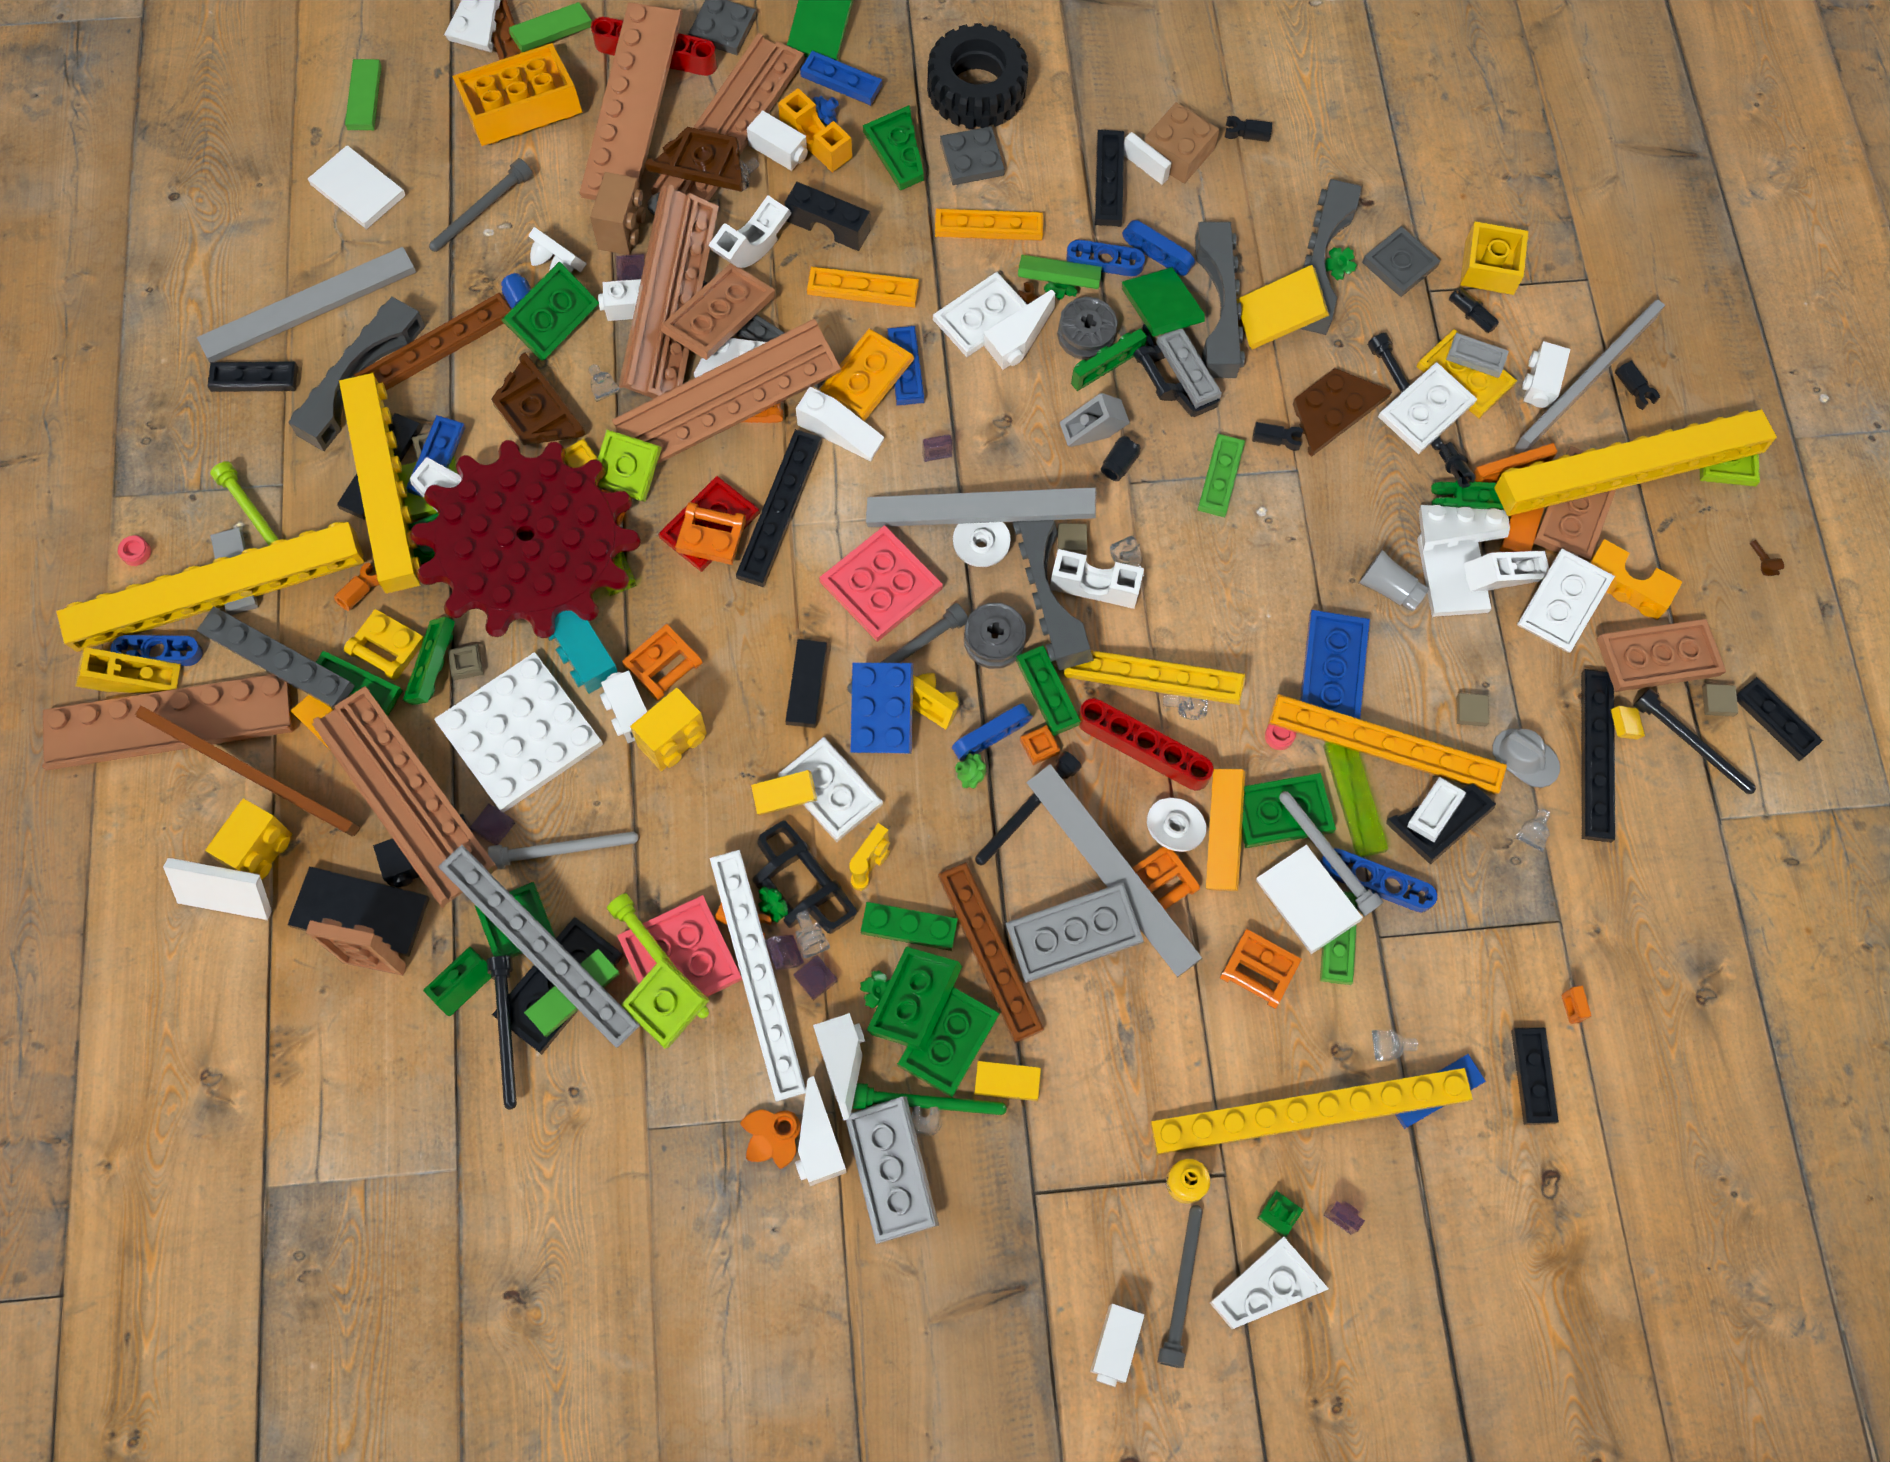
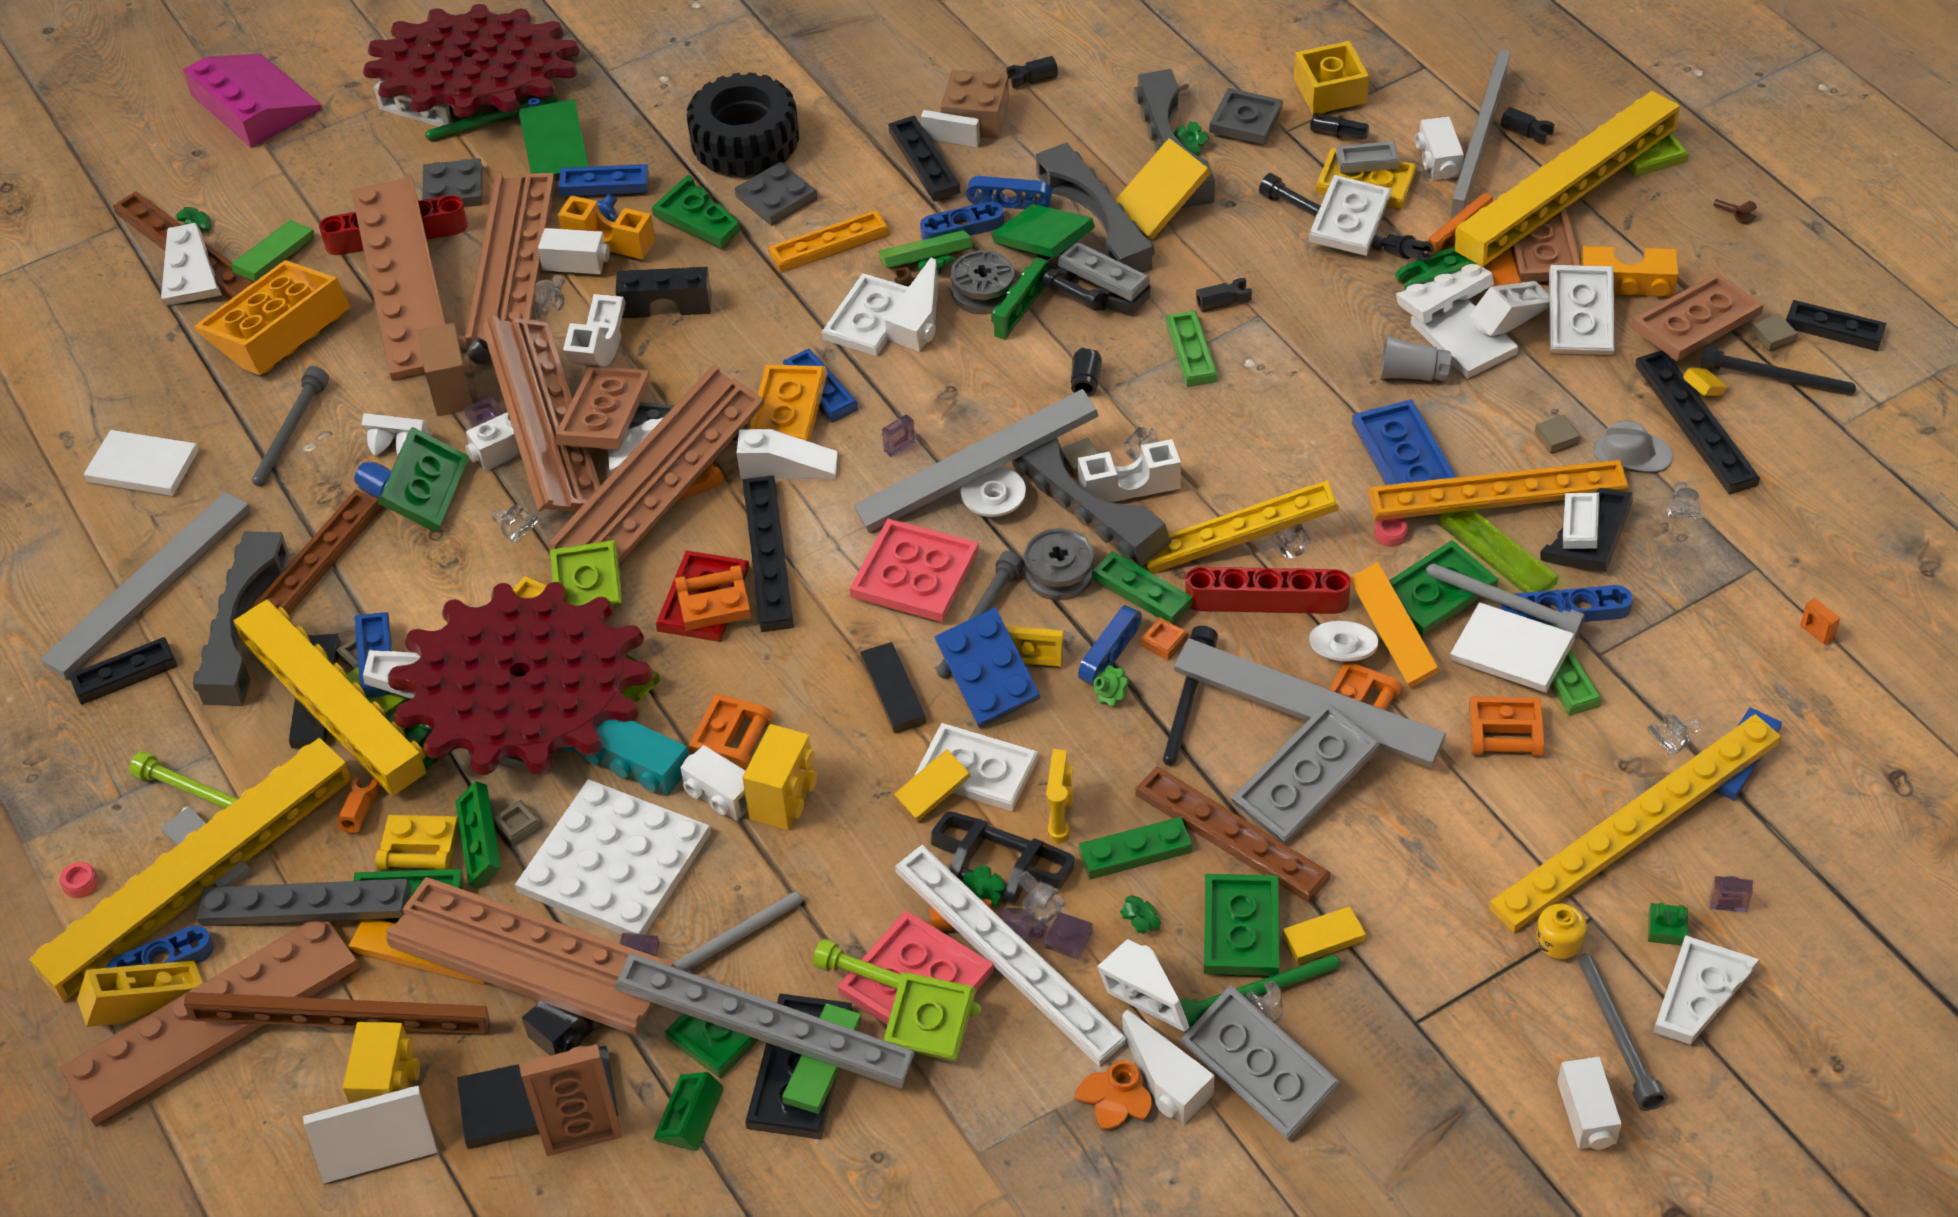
camera: 20 degrees left, 20 degrees down
(363, 94) = (101, 383): bright green tile -> none
(500, 970) = (730, 1073): black piece -> none
(534, 407) = (455, 570): reddish brown wing -> none
(701, 158) = (506, 290): reddish brown wing -> none
(862, 287) = (734, 339): light orange tile -> none
(914, 998) = (1184, 899): green plate -> none
(1094, 420) = (1040, 351): light grey slope -> none
(1335, 406) = (1262, 251): reddish brown wing -> none
(1534, 1076) = (1823, 700): black tile -> none

